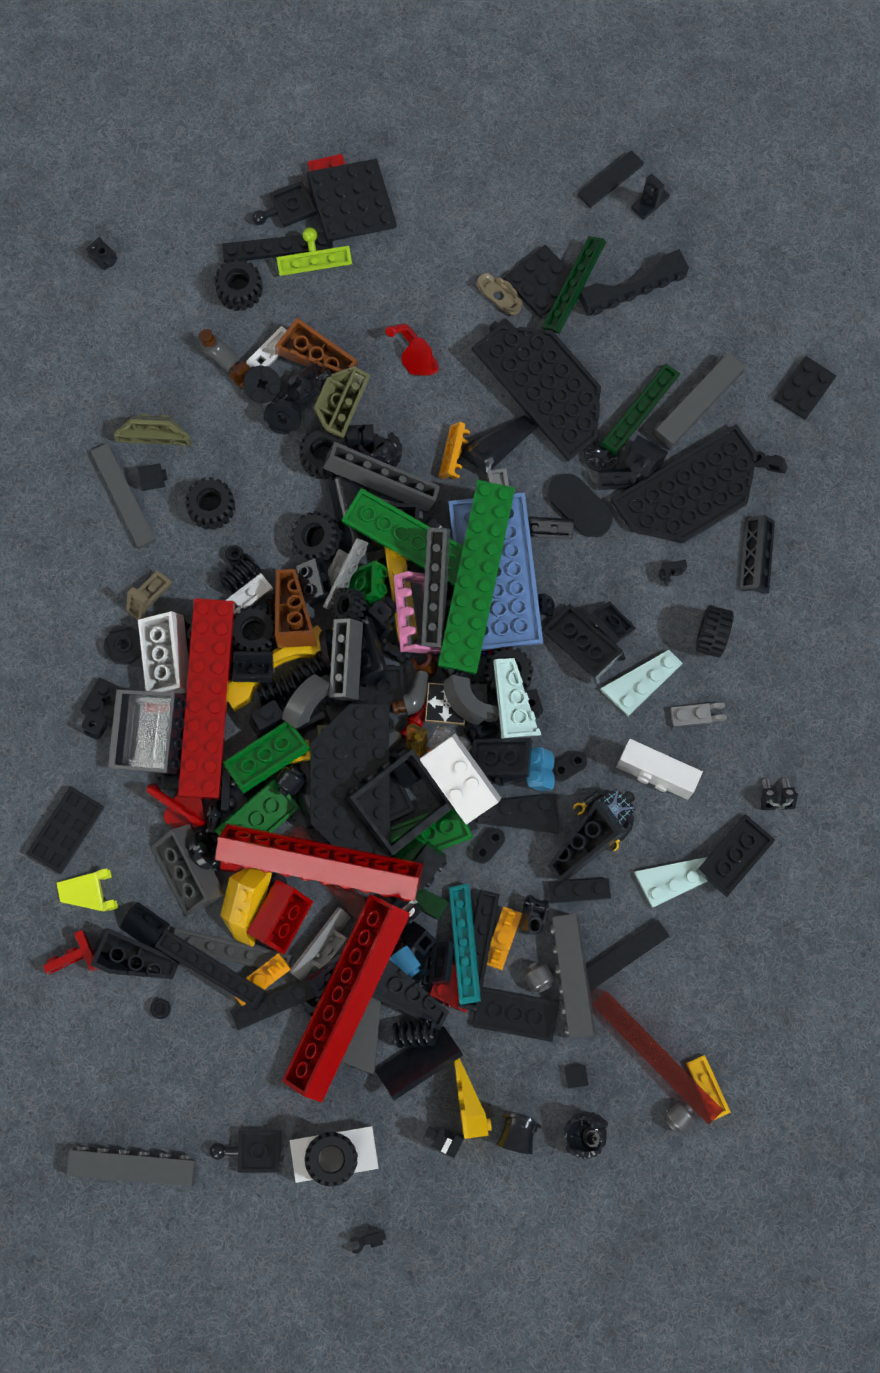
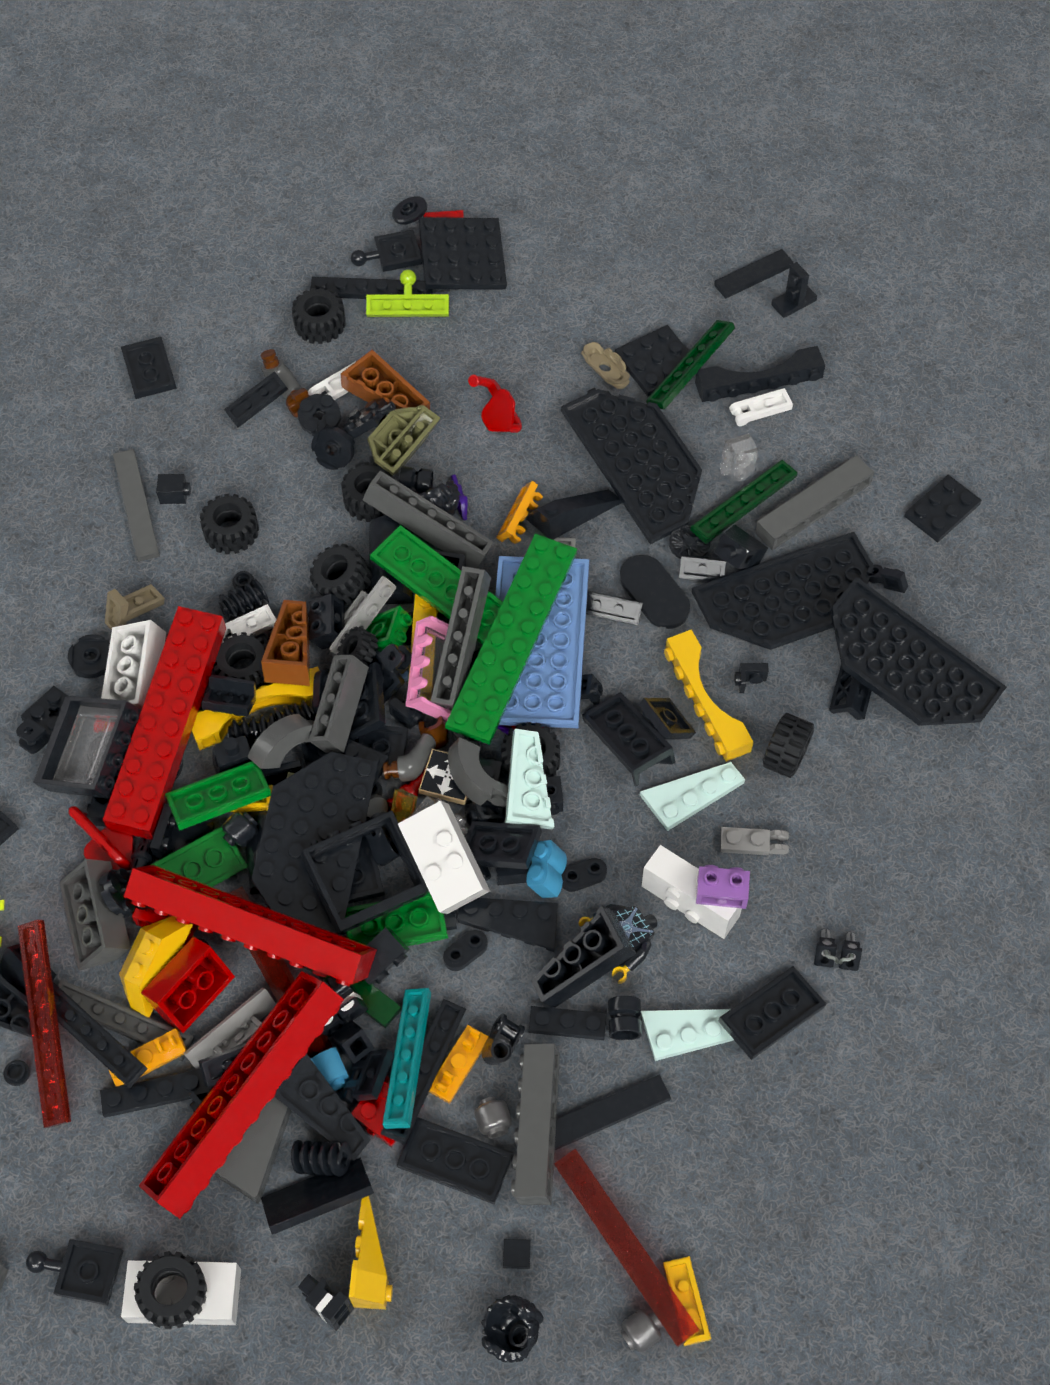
camera: 15 degrees right, 15 degrees down
(96, 250) = (180, 268): black brick -> none
(99, 359) = (148, 367): none -> black plate
(152, 430) = (184, 443): olive wedge -> none
(174, 968) = (44, 1024): none -> clear red plate
(203, 378) = (256, 399): none -> black plate
(294, 160) = (409, 210): none -> black wheel
(405, 455) = (463, 503): none -> dark purple hand
(518, 1133) = (423, 1308): black hat -> none
(624, 881) = (625, 1020): none -> black wheel
(630, 371) = (739, 458): none -> clear brick
(639, 314) = (761, 406): none -> white plate
(663, 626) = (728, 733): none -> yellow arch
(685, 767) = (722, 886): none -> medium lavender brick
(798, 539) = (908, 661): none -> black plate

